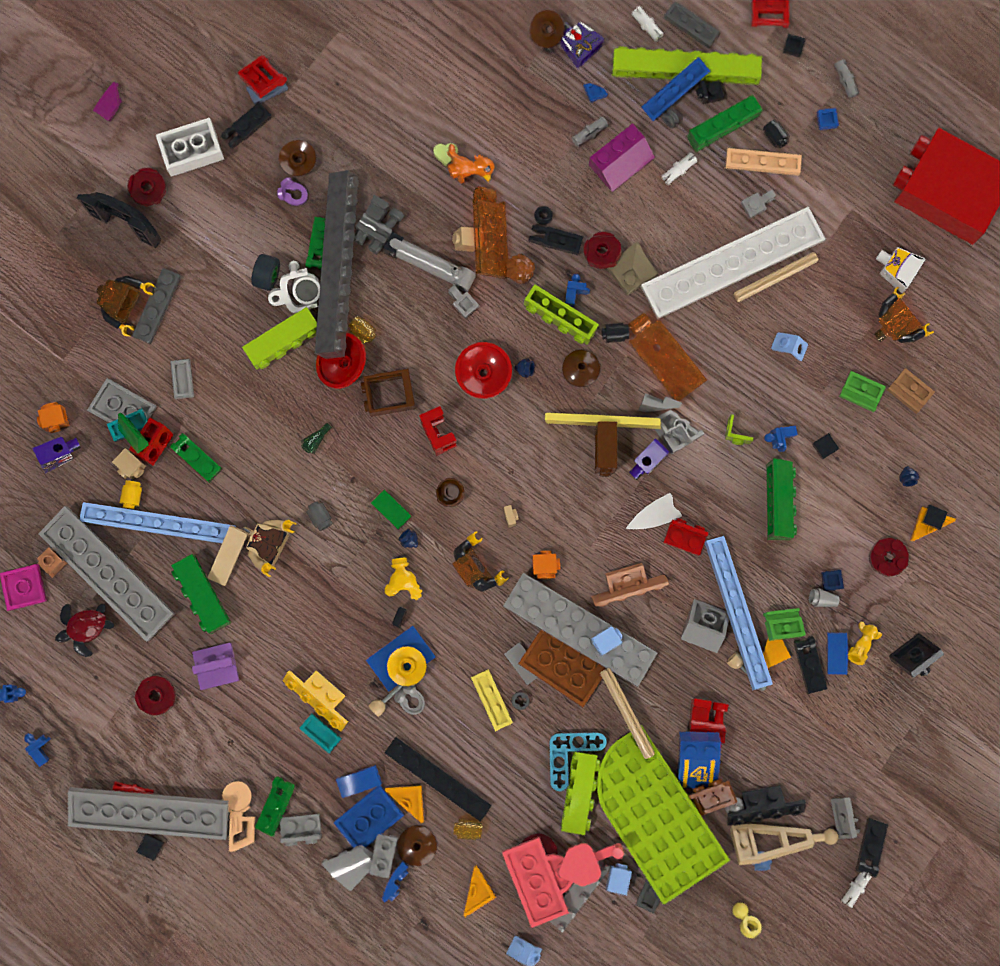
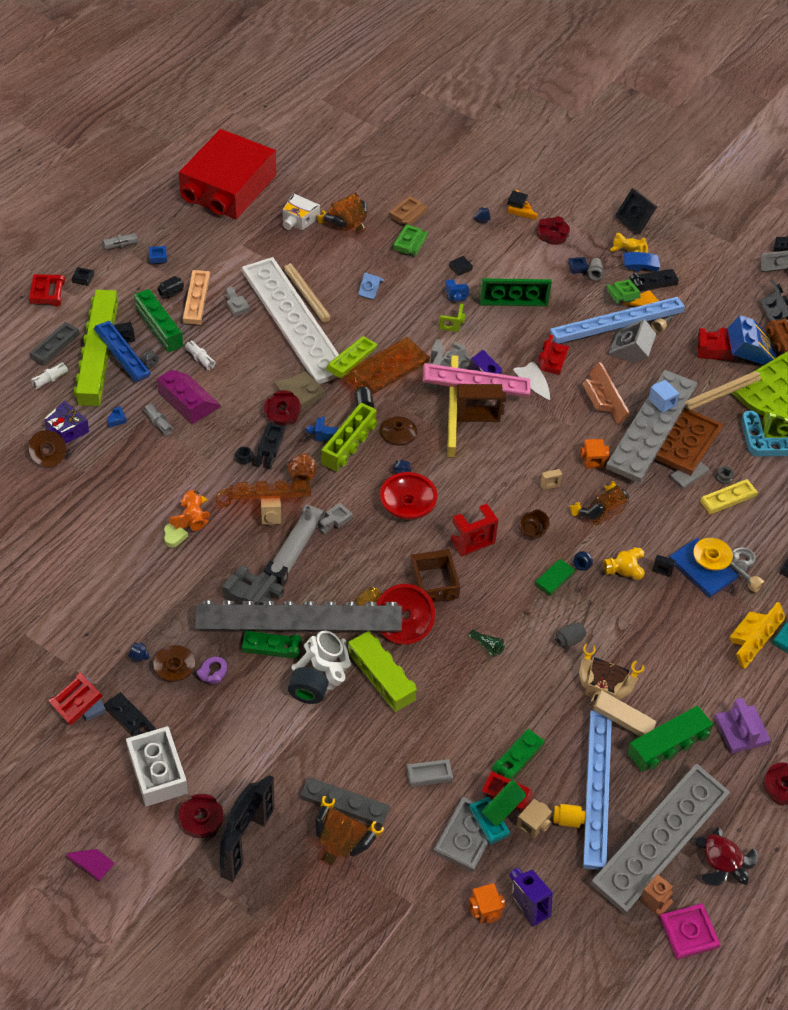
camera: 90 degrees left, 30 degrees down
(311, 128) = (138, 652): none -> dark blue plate
(627, 443) = (453, 376): none -> bright pink tile
(671, 319) = (351, 357): none -> lime plate

